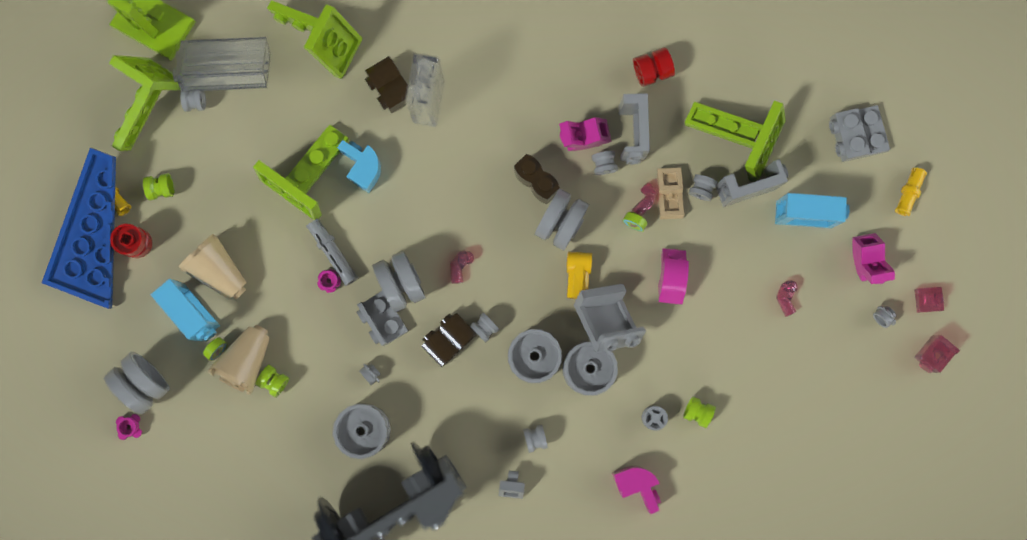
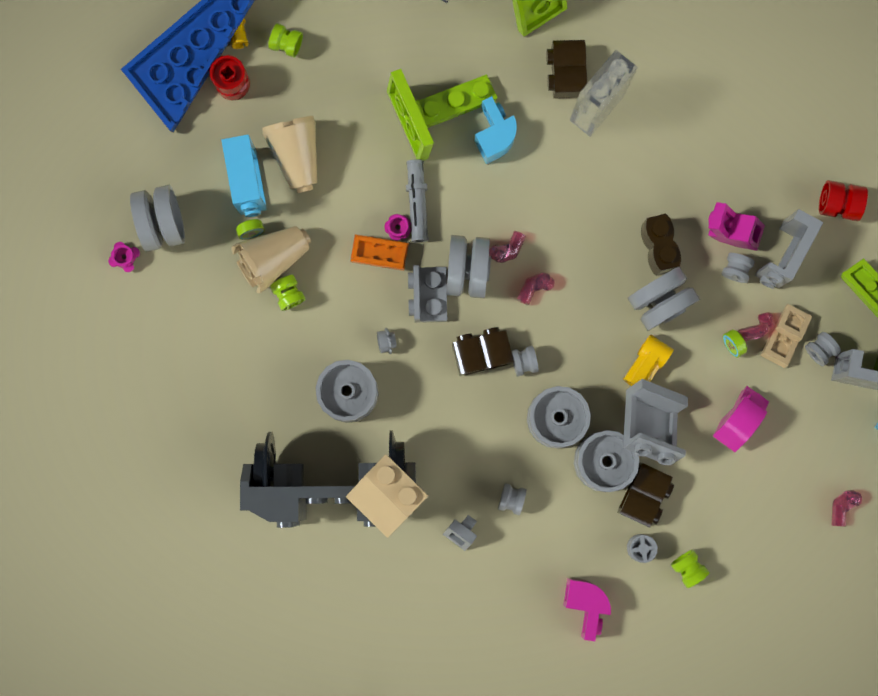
camera: 30 degrees right, 0 degrees up
(325, 308) = (379, 252): none -> orange plate
(424, 251) = (508, 251): none -> clear pink arm
(435, 497) = (386, 495): none -> tan slope
(634, 376) = (645, 495): none -> dark brown brick

